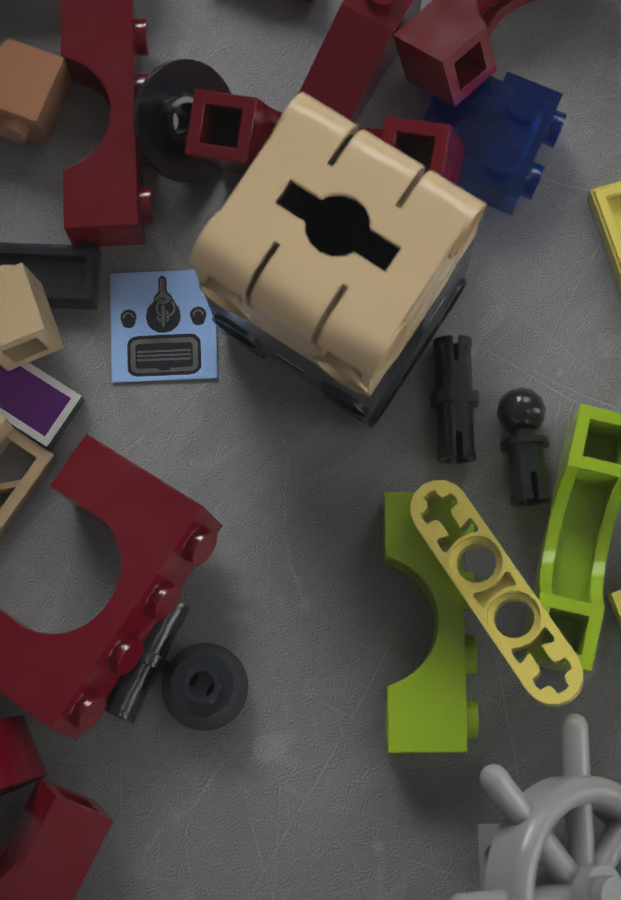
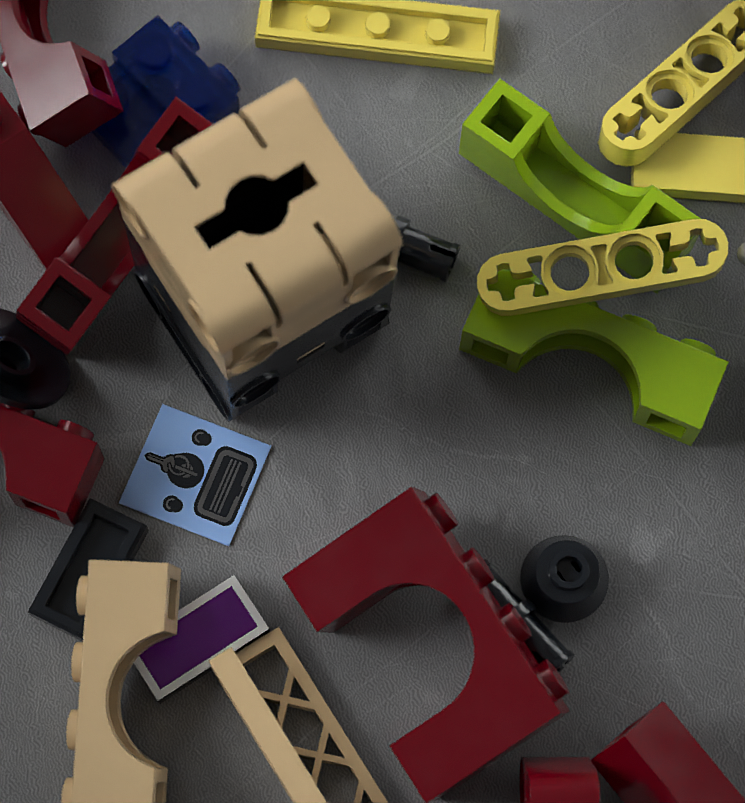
camera: 70 degrees left, 5 degrees down
(521, 415) = (437, 189): black pin -> none

